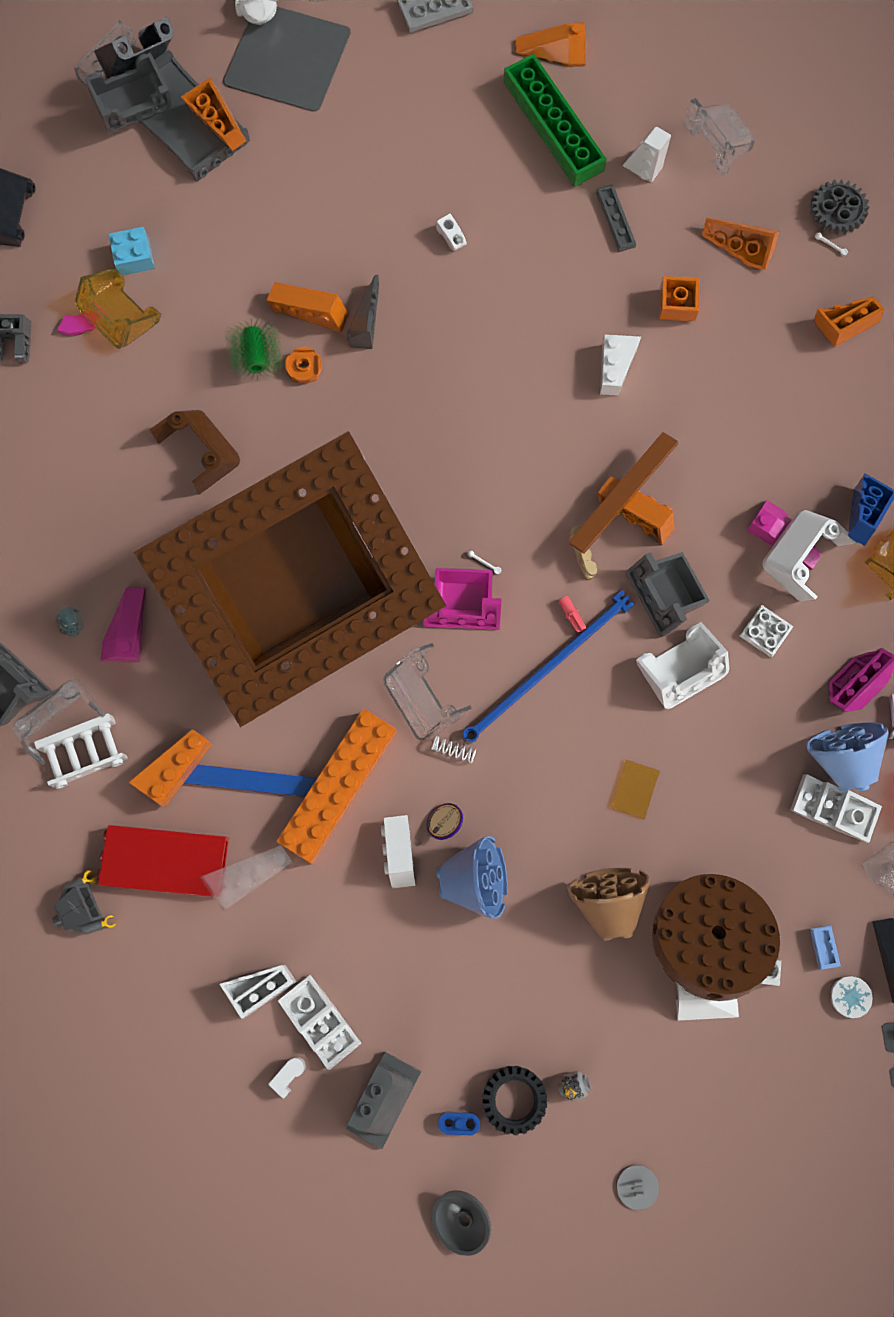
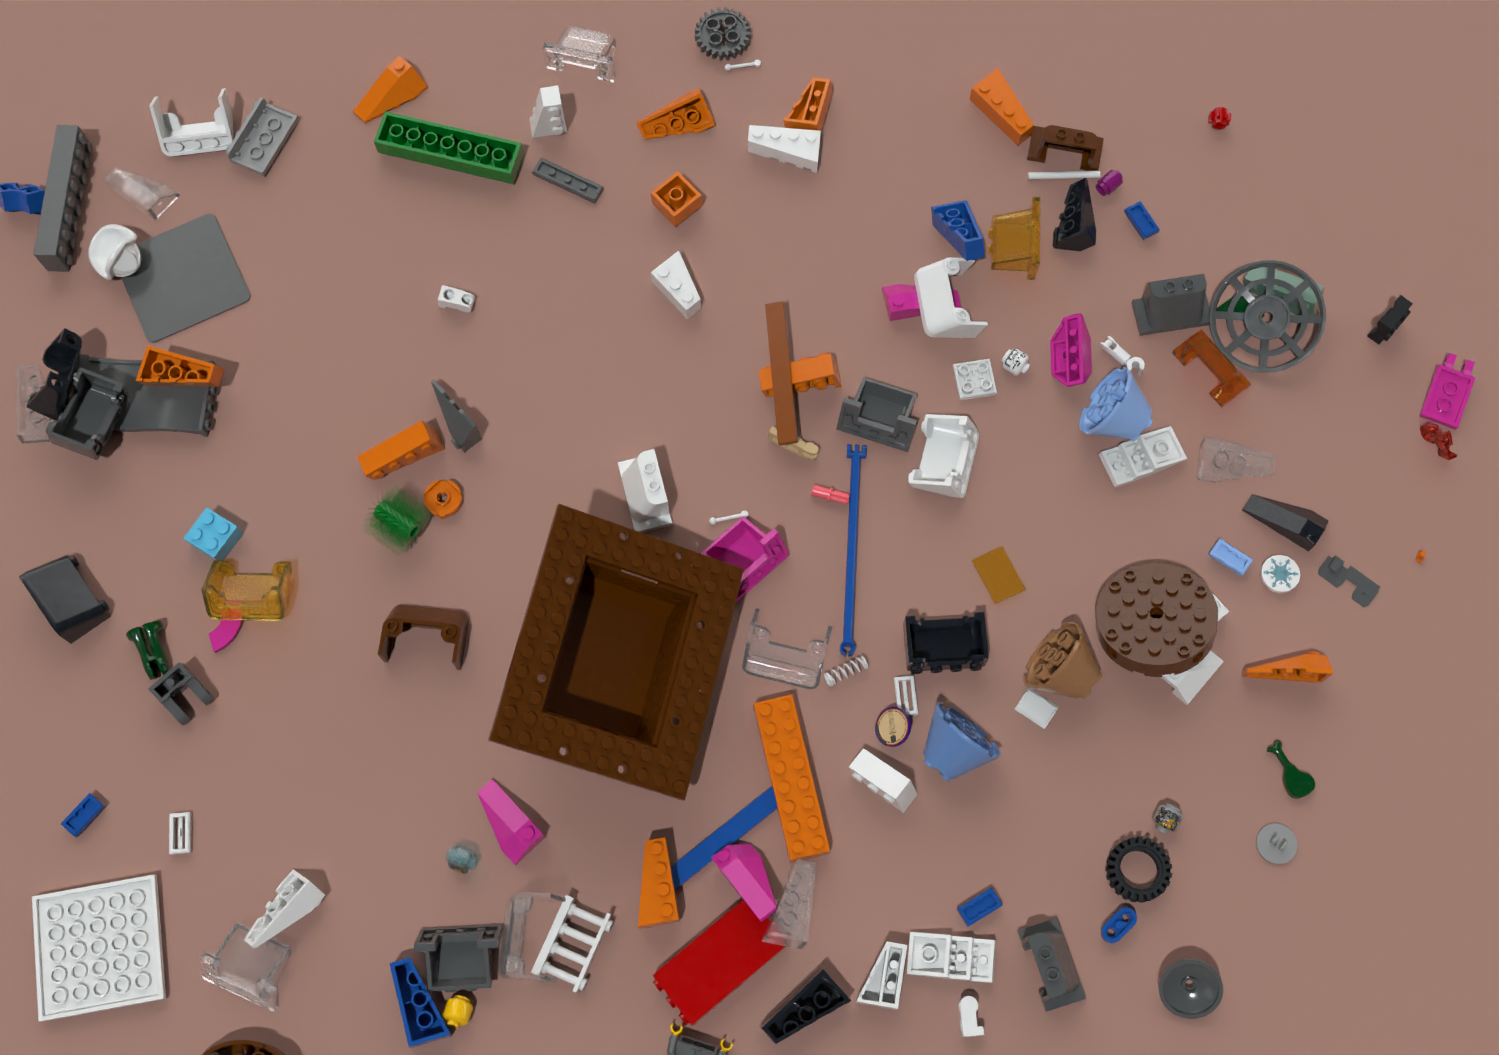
camera: 45 degrees left, 5 degrees down
(15, 303) = (158, 658): none -> dark green piece
(184, 951) = (807, 1005): none -> black wedge
(236, 820) = (747, 875): none -> dark pink wedge
(374, 1008) = (979, 907): none -> blue plate
(440, 487) = (645, 492): none -> white windscreen
(488, 796) = (913, 694): none -> white tile
(541, 799) = (945, 644): none -> black windscreen
(563, 911) = (1036, 708): none -> white piece
(699, 1158) = (1295, 782): none -> dark green piece
(797, 1086) = (1303, 668): none -> orange wedge
(802, 331) = (786, 144): none -> white wedge
(811, 647) = (1015, 361): none -> white head

